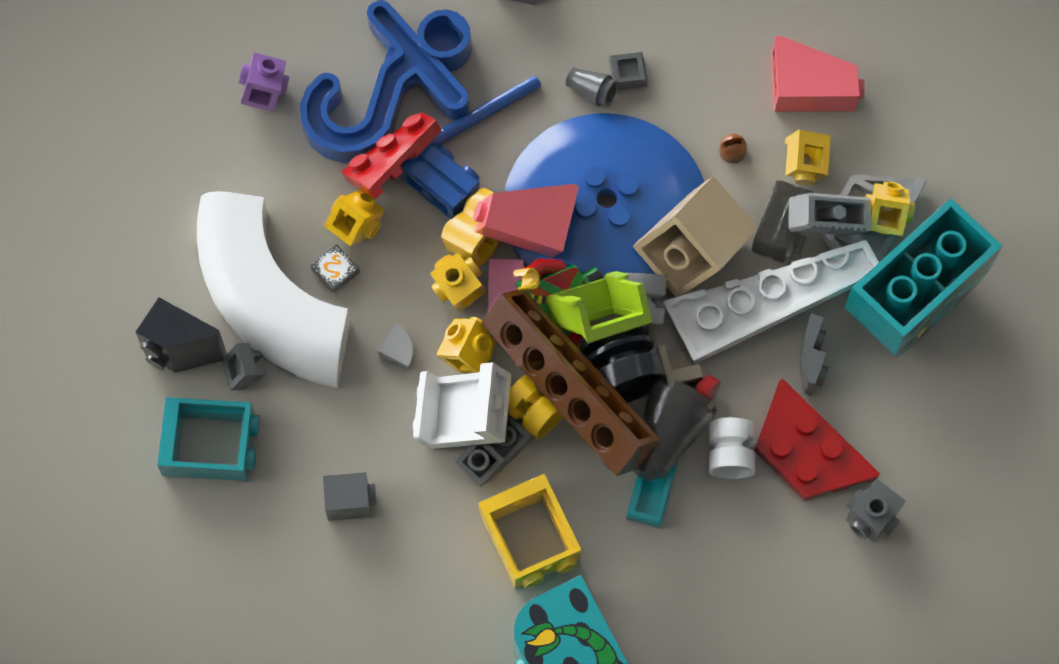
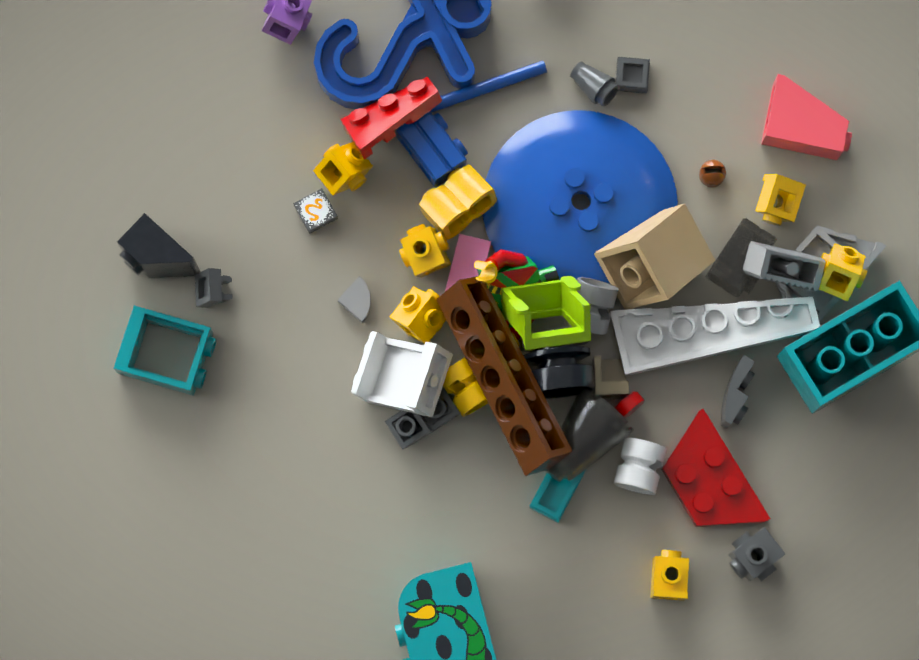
camera: 10 degrees right, 10 degrees up
(258, 297) = (237, 226): white brick -> none
(348, 496) = (281, 432): dark grey brick -> none
(517, 499) = (429, 470): yellow window -> none
(528, 217) = (503, 208): coral slope -> none
(789, 566) = (669, 589): none -> yellow brick

